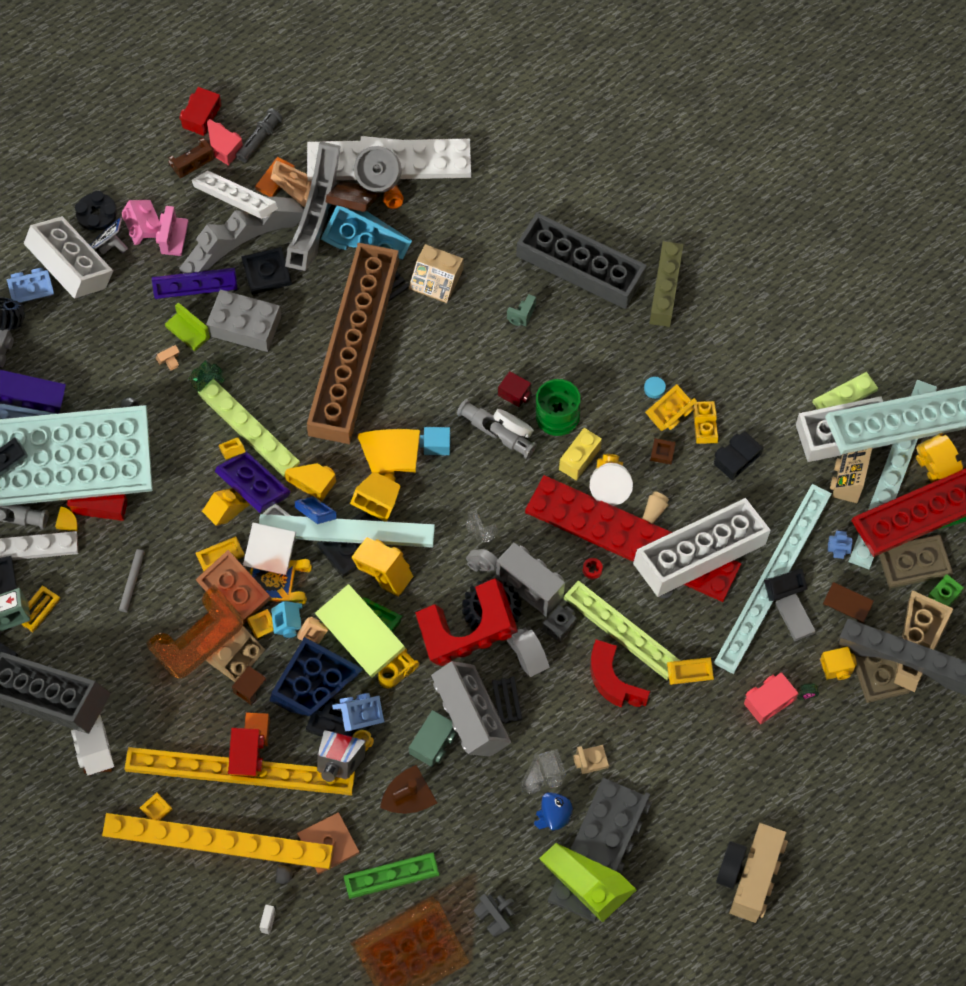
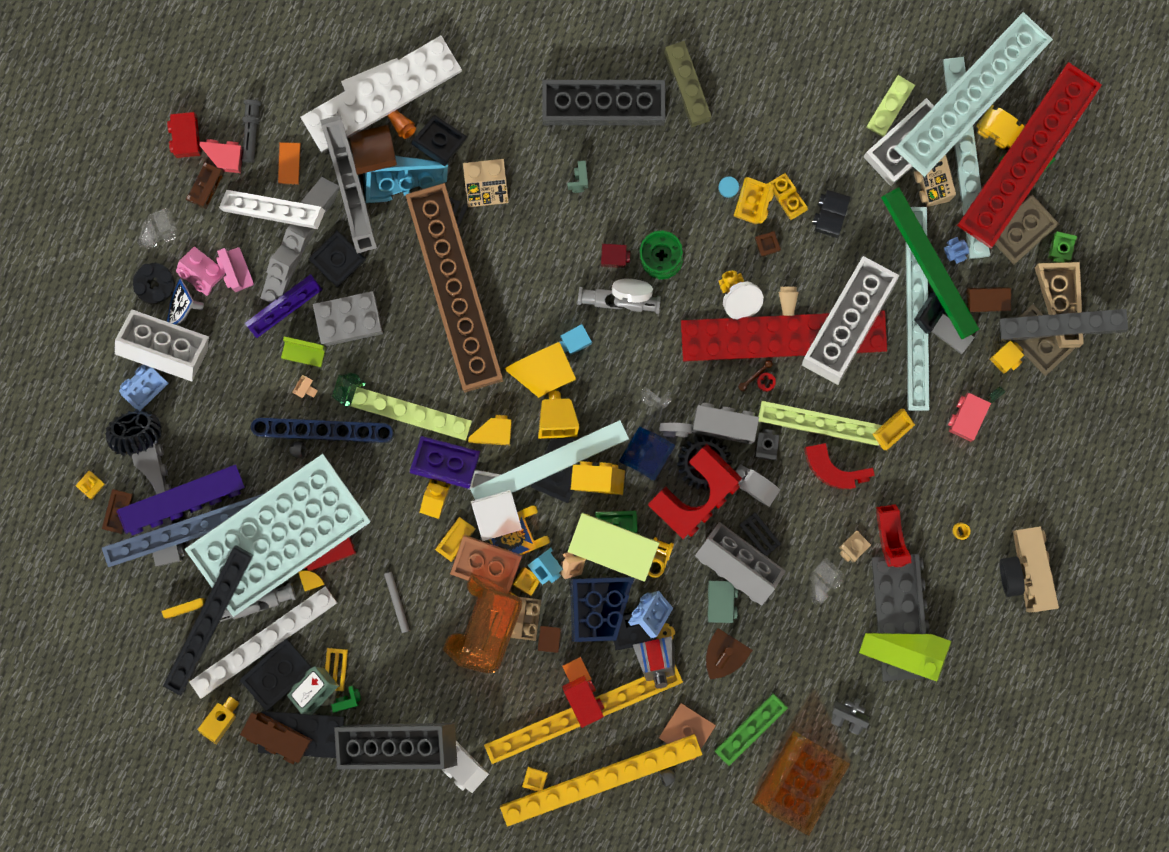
camera: 30 degrees left, 20 degrees up
(26, 641) = (343, 702): none -> green bracket
(129, 169) = (158, 227): none -> clear slope
(154, 393) = (312, 432): none -> dark blue beam
(231, 448) = (408, 441): yellow tile -> none
(267, 919) = (677, 820): white tile -> none
(291, 181) = (310, 163): light nougat wing -> none
(315, 510) = (513, 459): blue tile -> none
(389, 173) = (393, 116): light grey wheel -> none
(416, 220) = (439, 140): none -> black plate
(444, 573) = (647, 453): none -> clear blue slope
(555, 812) = (852, 608): blue piece -> none
(568, 562) = (743, 386): none -> reddish brown hinge
(580, 454) = (702, 286): light yellow brick -> none
(633, 764) = (891, 536): none -> red arch
(710, 798) = (965, 530): none -> yellow hinge
(807, 541) = (930, 263): none -> green tile

